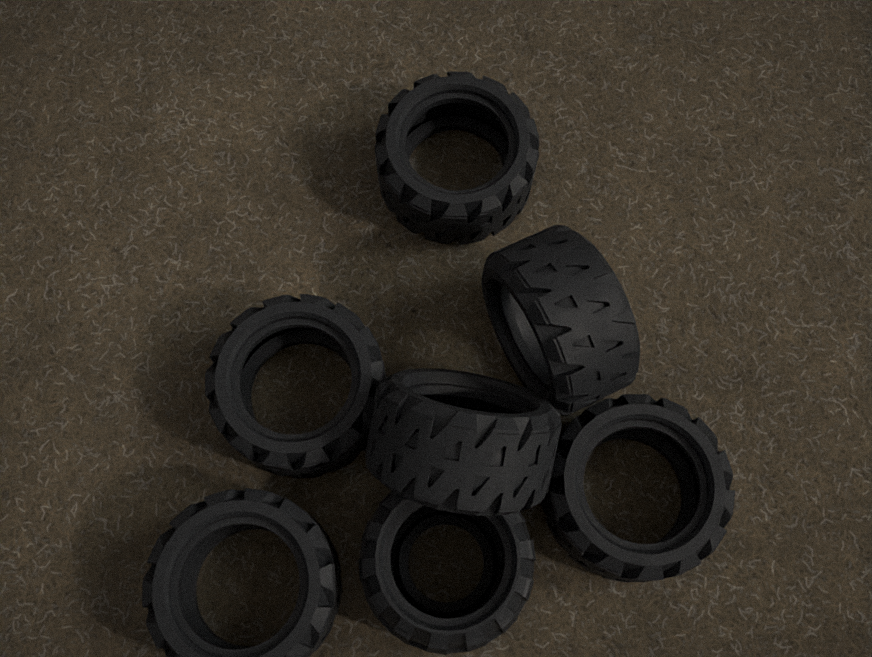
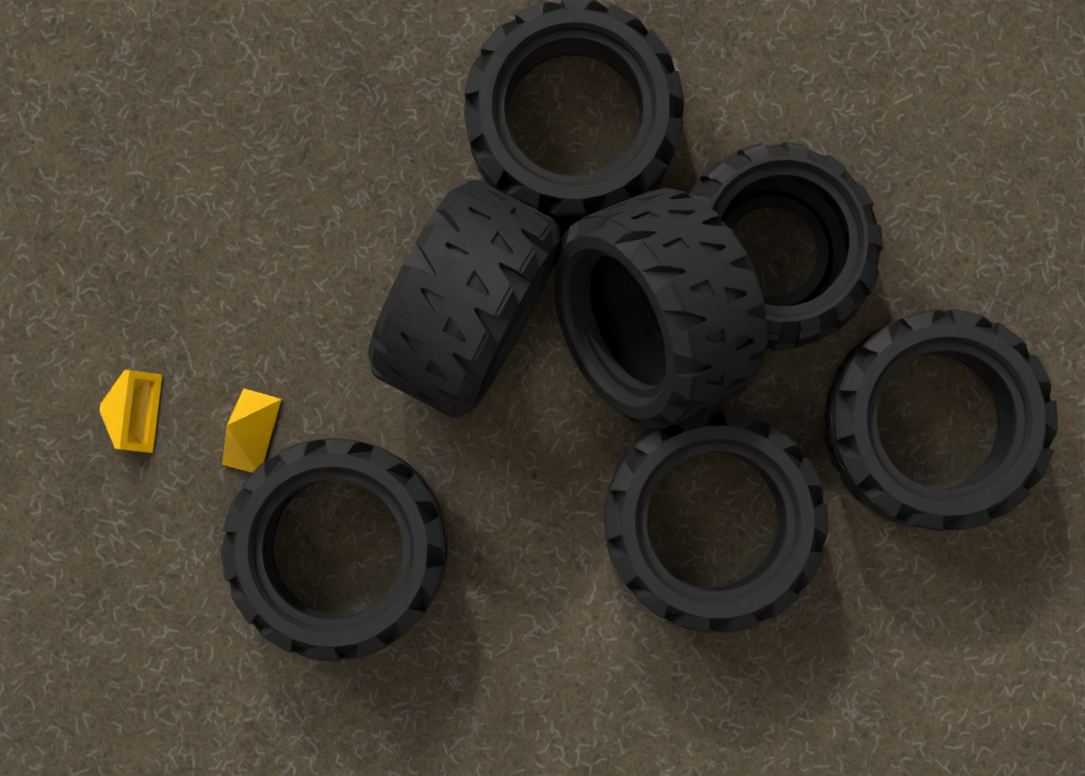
camera: 125 degrees left, 15 degrees up
(562, 170) = (250, 430): none -> yellow slope
(617, 117) = (132, 410): none -> yellow slope

